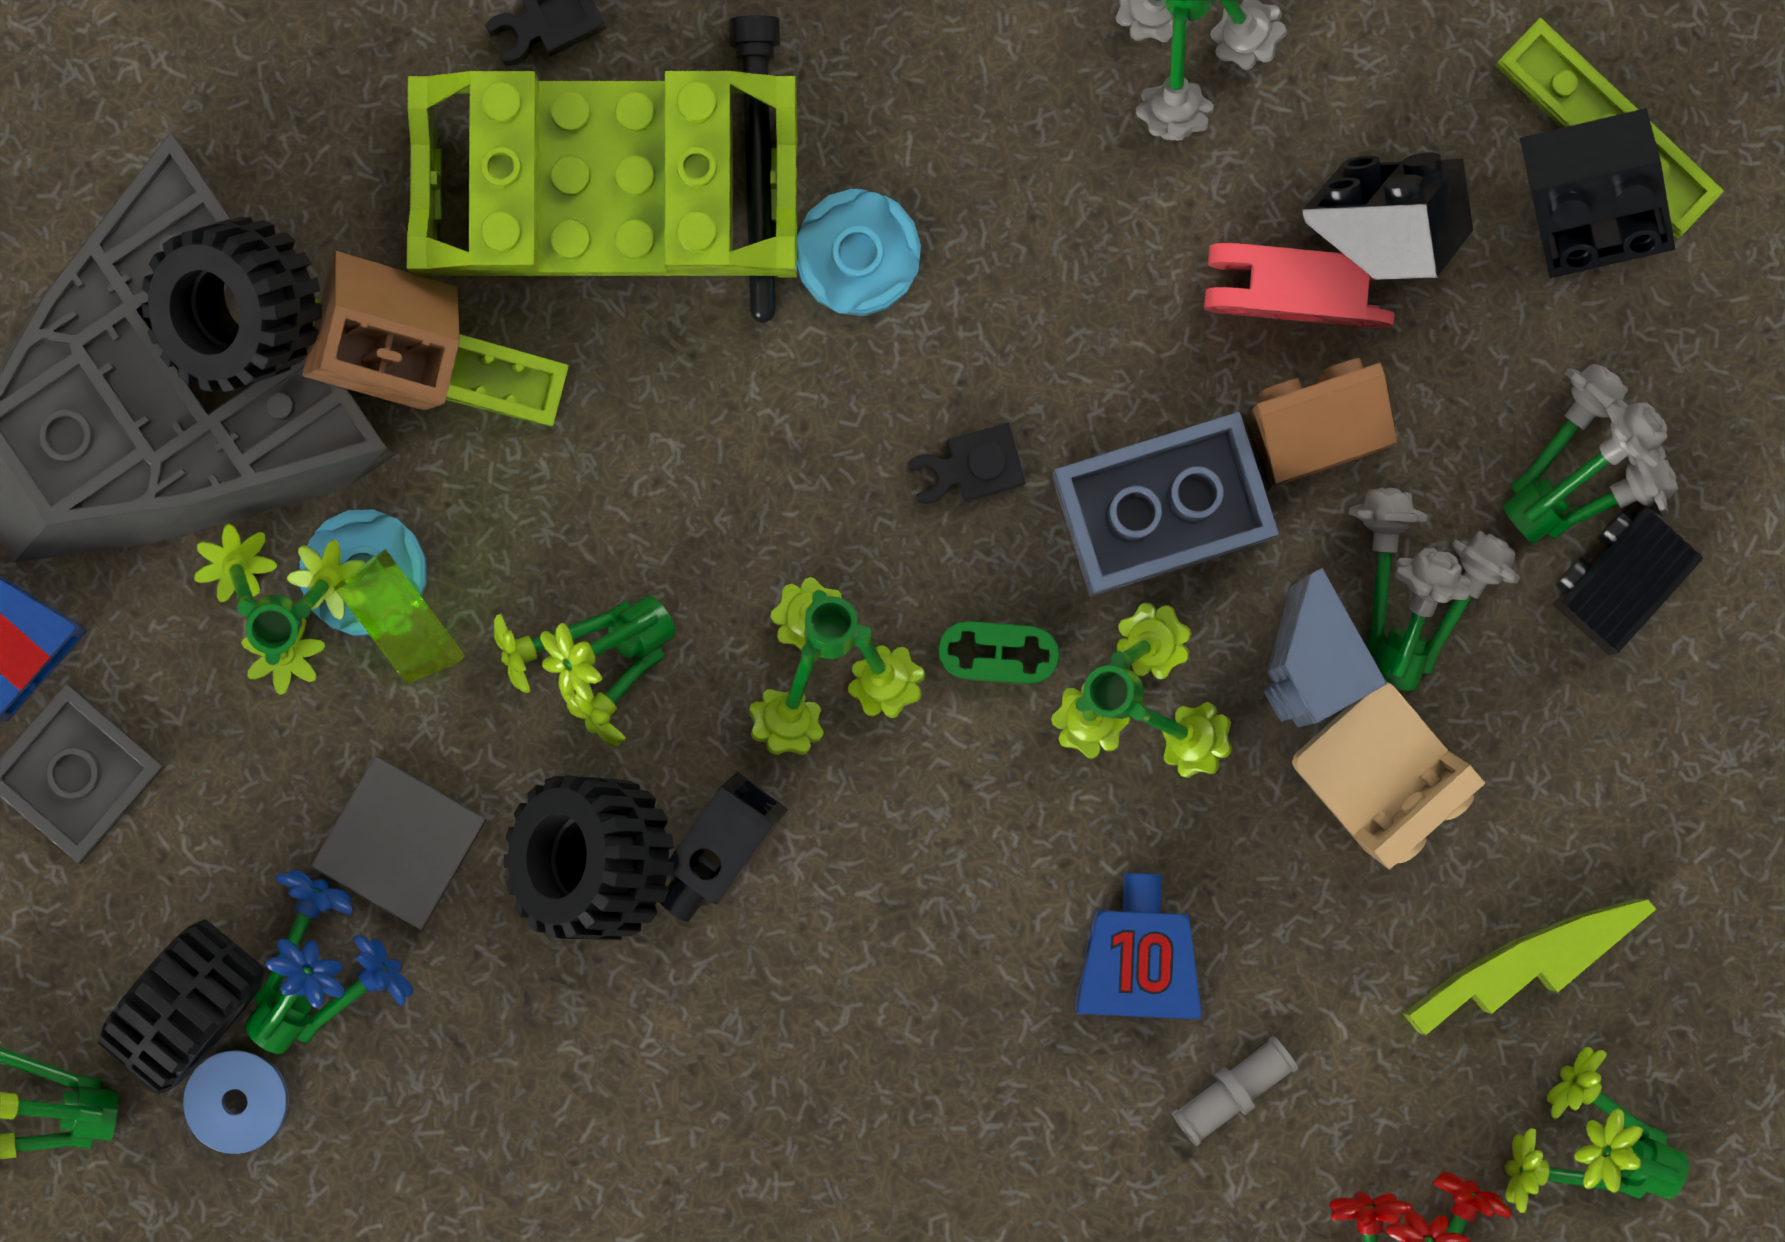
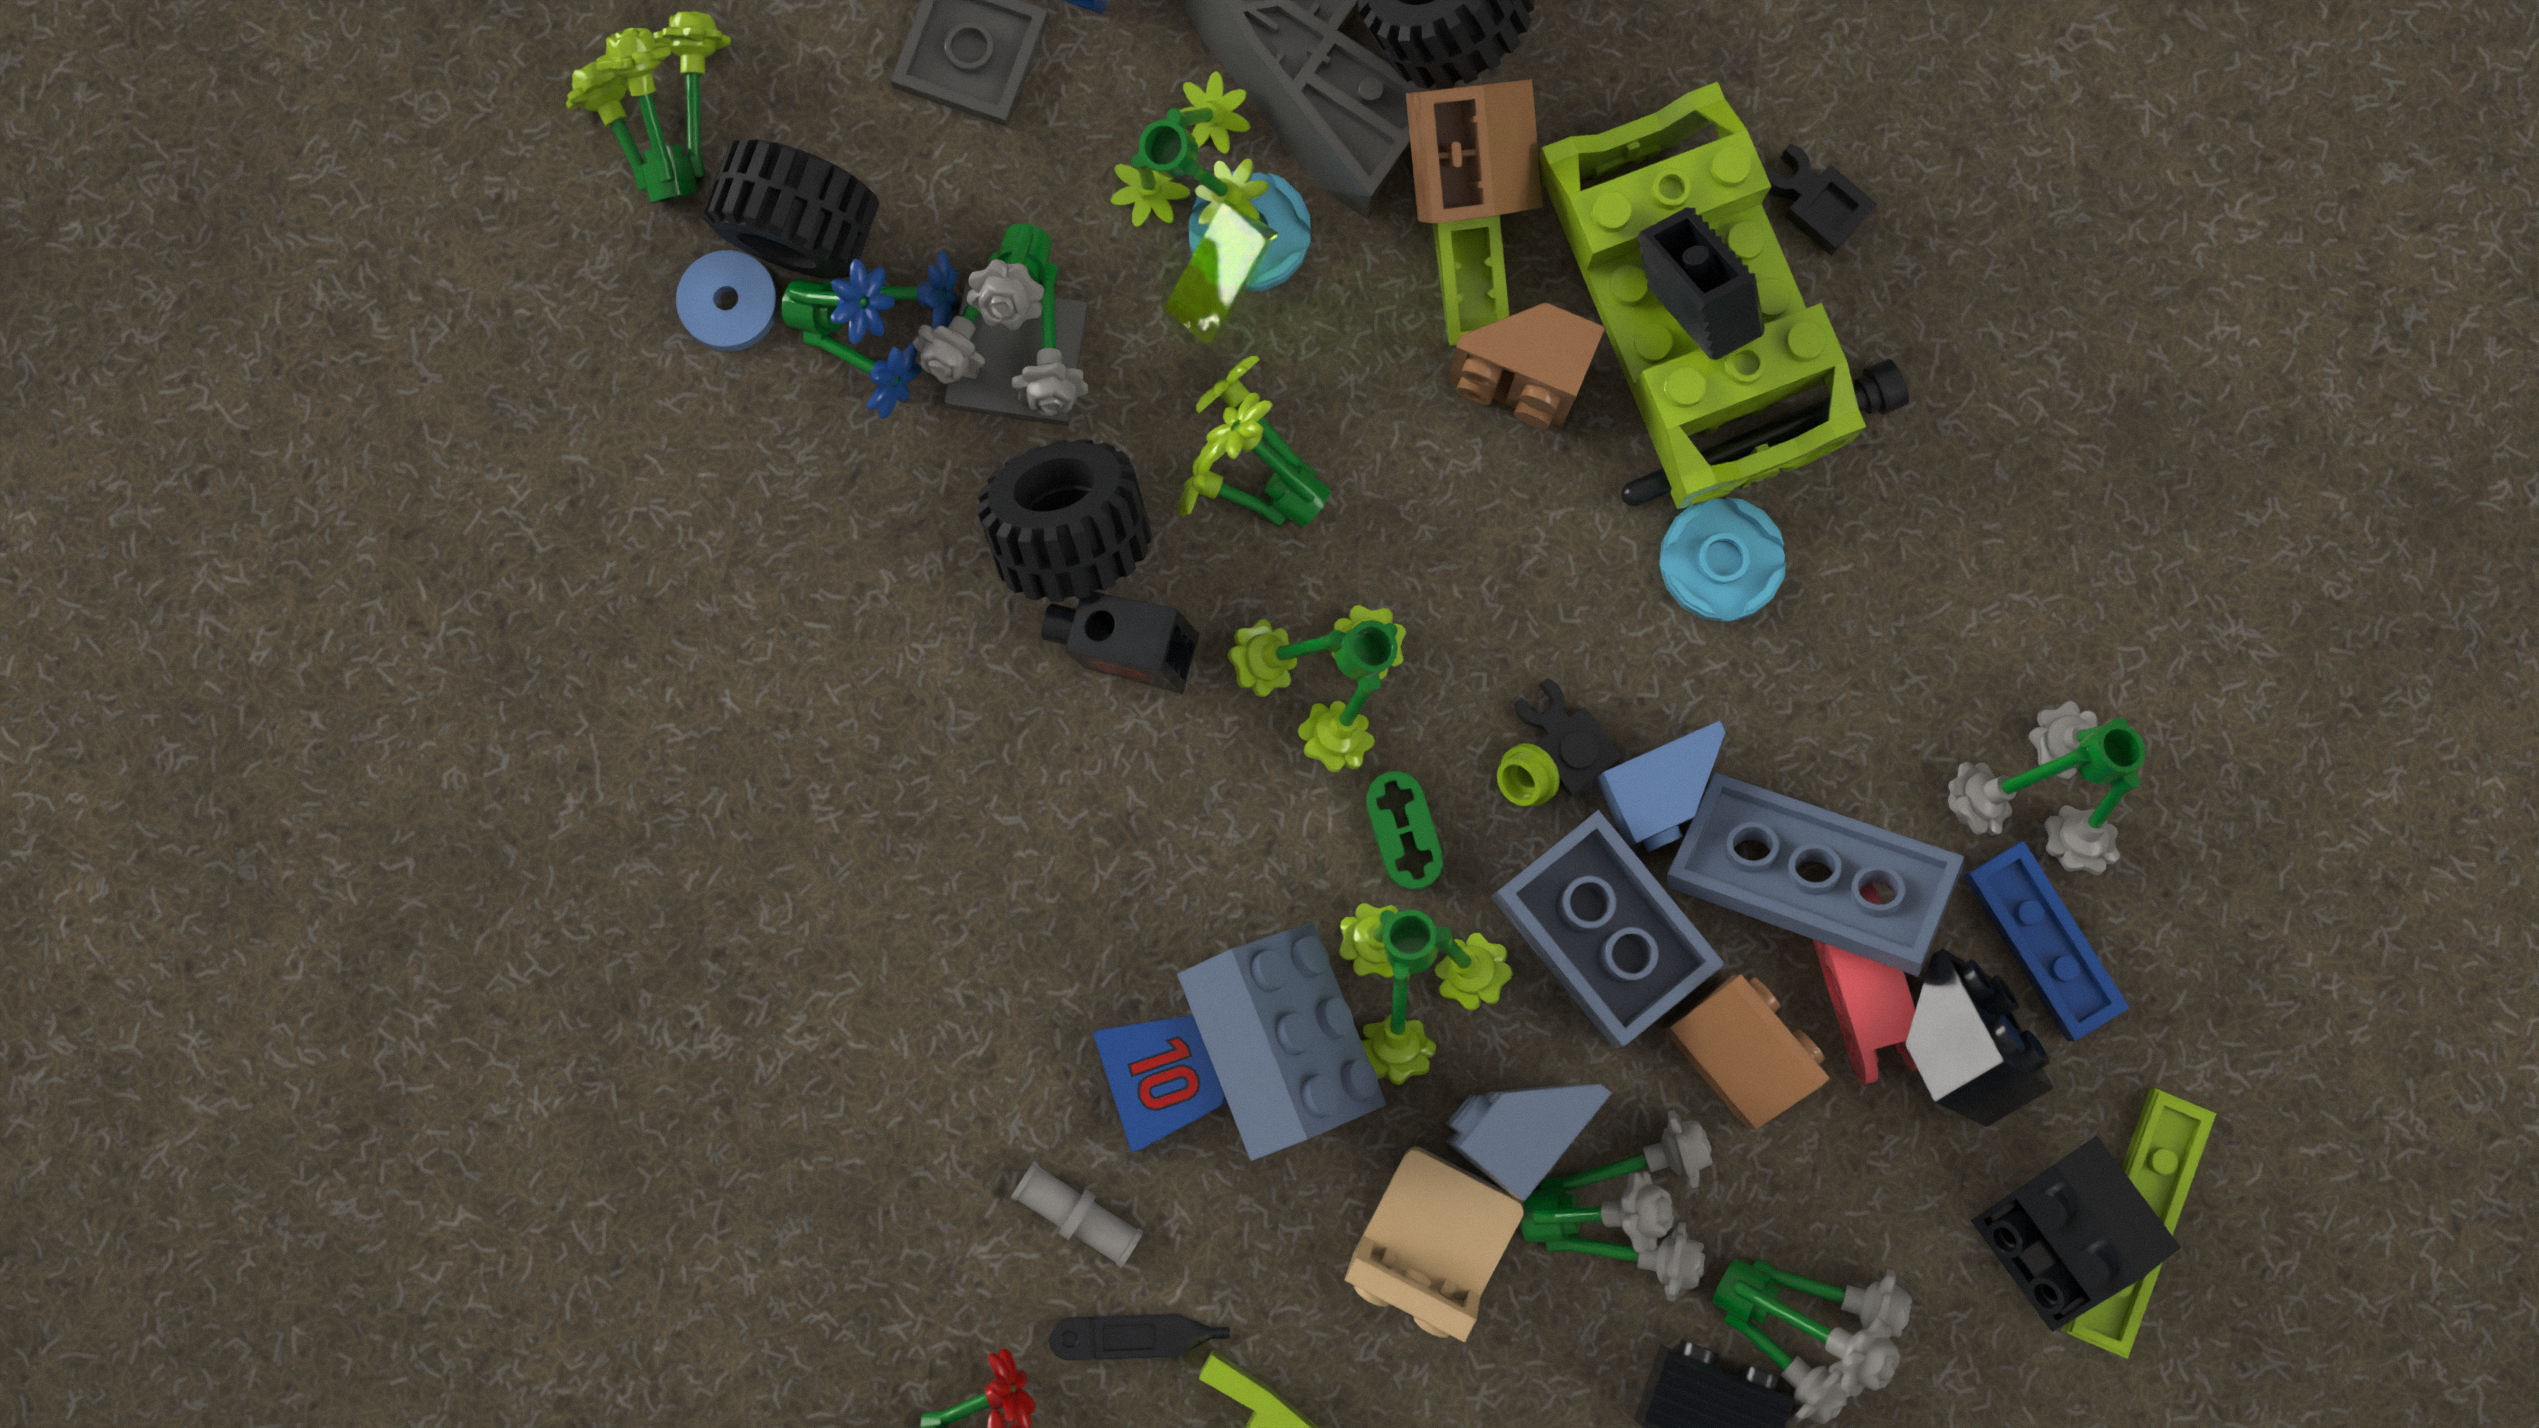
camera: 70 degrees right, 5 degrees down
(361, 832) = (1009, 295): none -> light grey plant
(607, 178) = (1702, 283): none -> black brick
(607, 356) = (1527, 363): none -> medium nougat slope
(992, 518) = (1527, 775): none -> lime plate
(1052, 398) = (1661, 787): none -> medium blue slope
(1152, 842) = (1281, 1040): none -> sand blue brick
(1226, 300) = (1825, 911): none -> sand blue plate
(1327, 104) = (2046, 941): none -> blue plate
(1362, 1084) = (1129, 1336): none -> black piece

